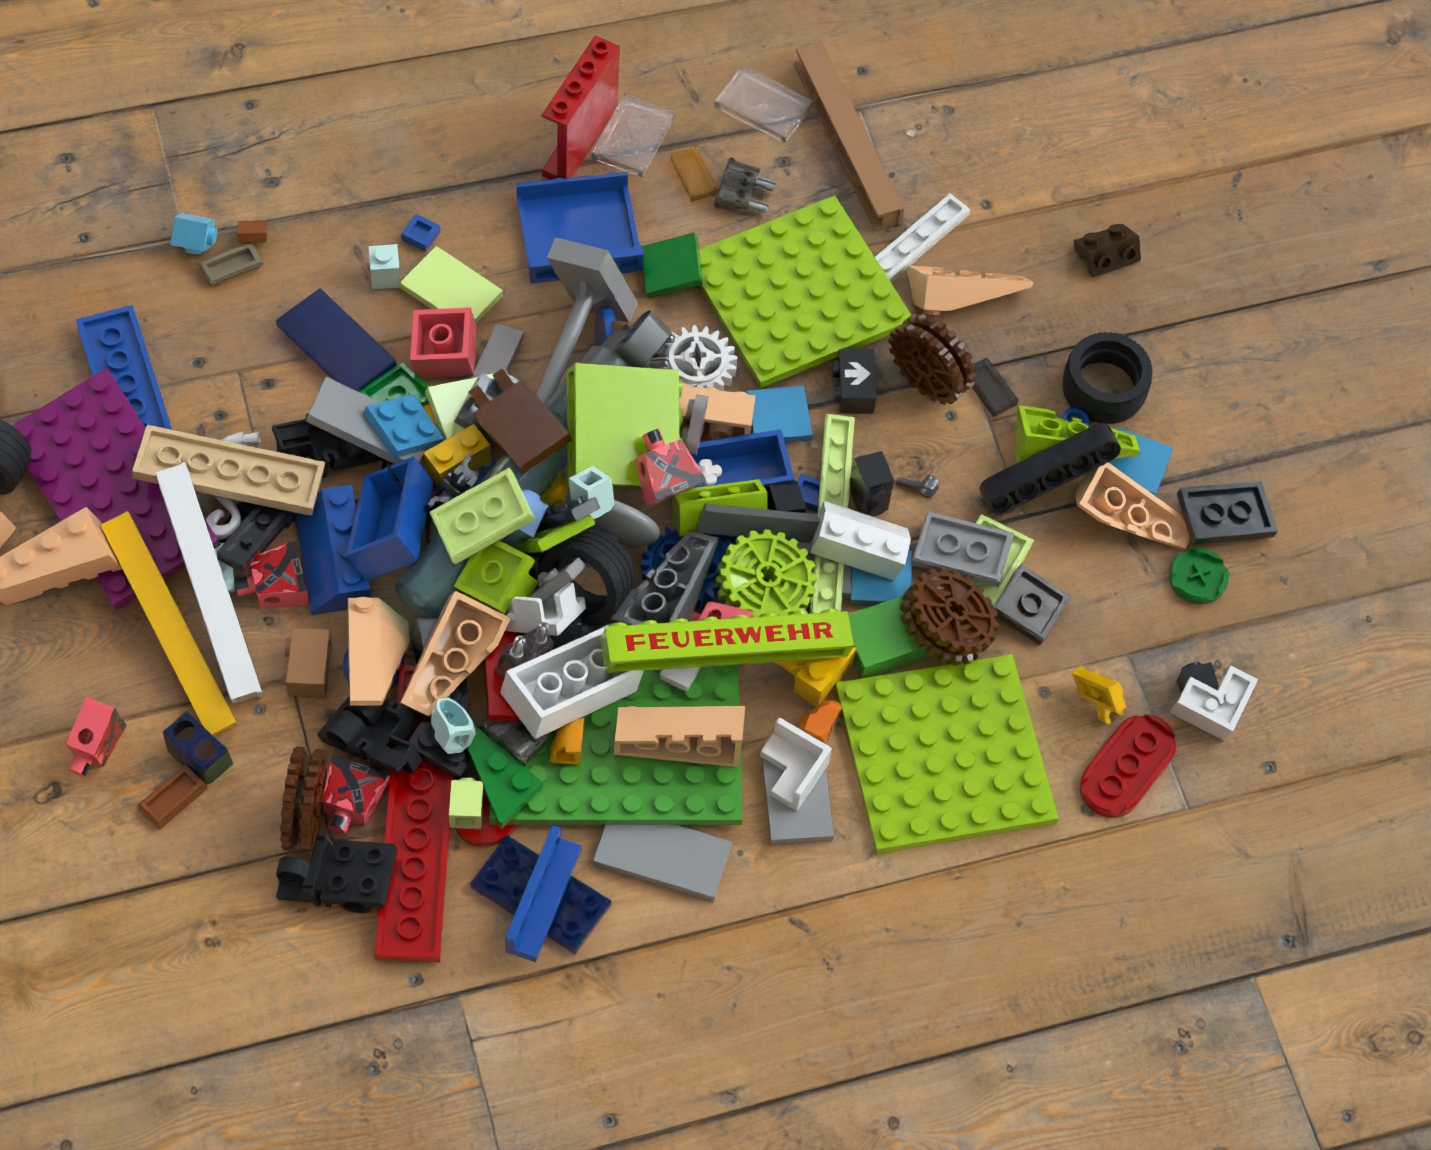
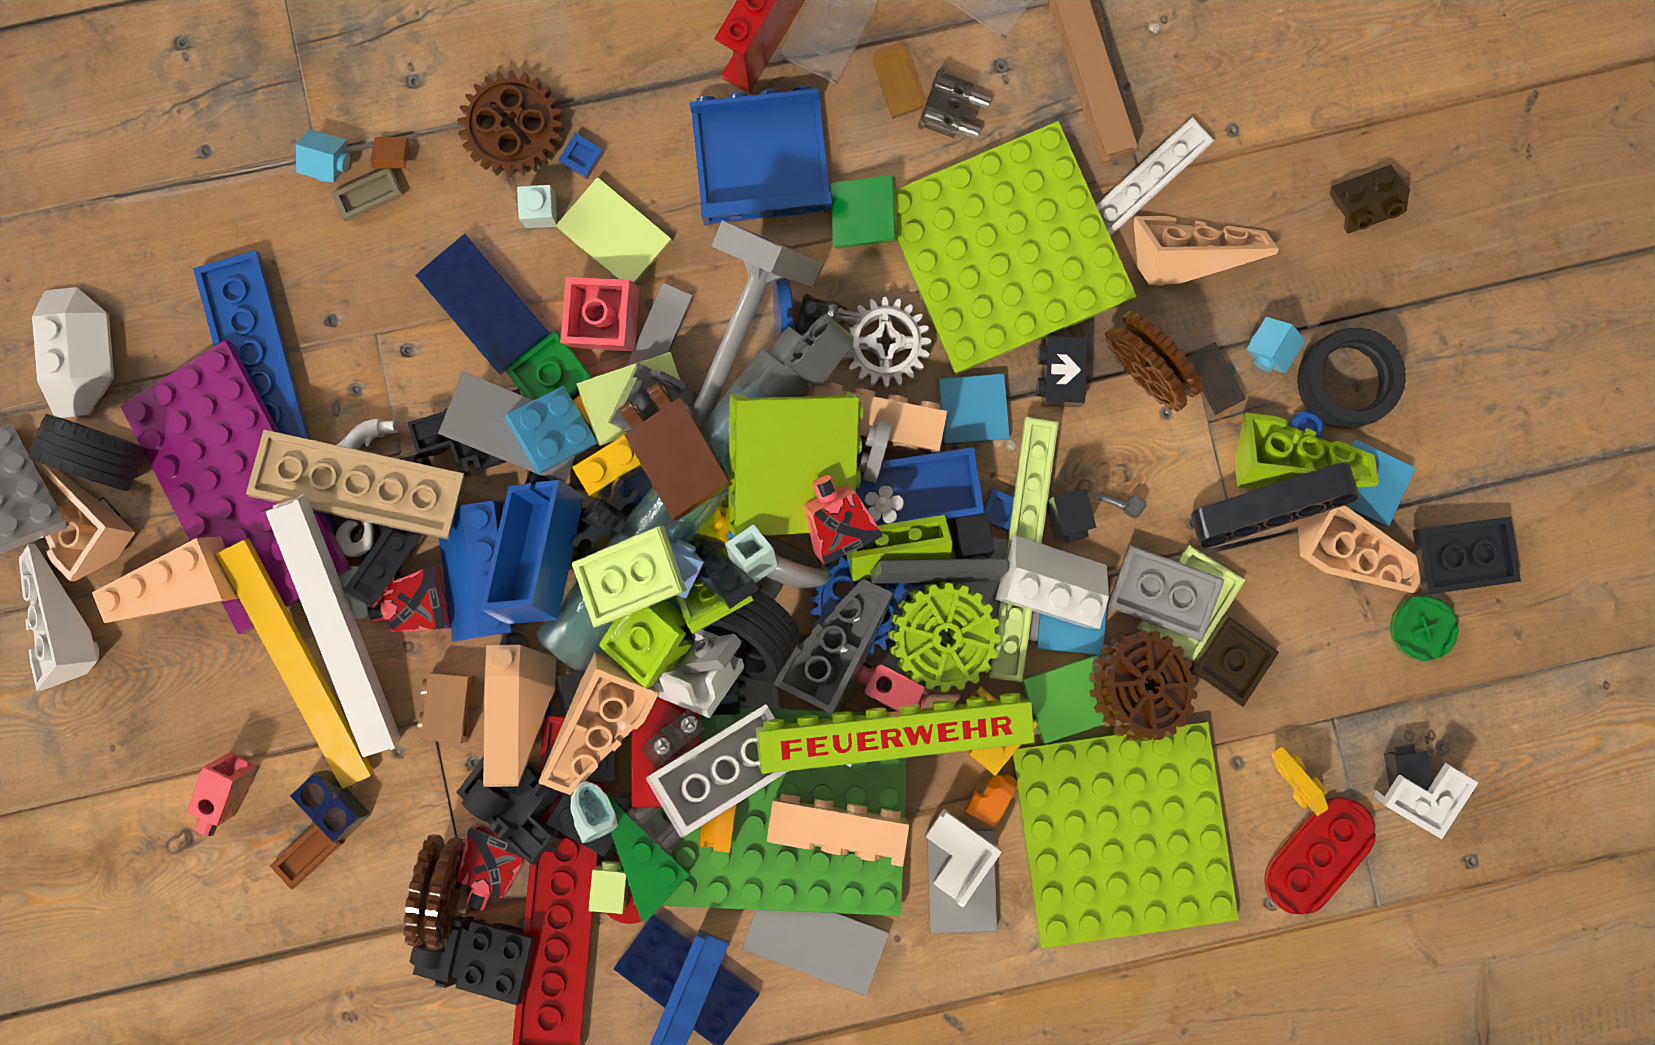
camera: 10 degrees right, 25 degrees up
(376, 208) = (532, 105): none -> reddish brown gear
(1039, 354) = (1275, 345): none -> medium azure brick

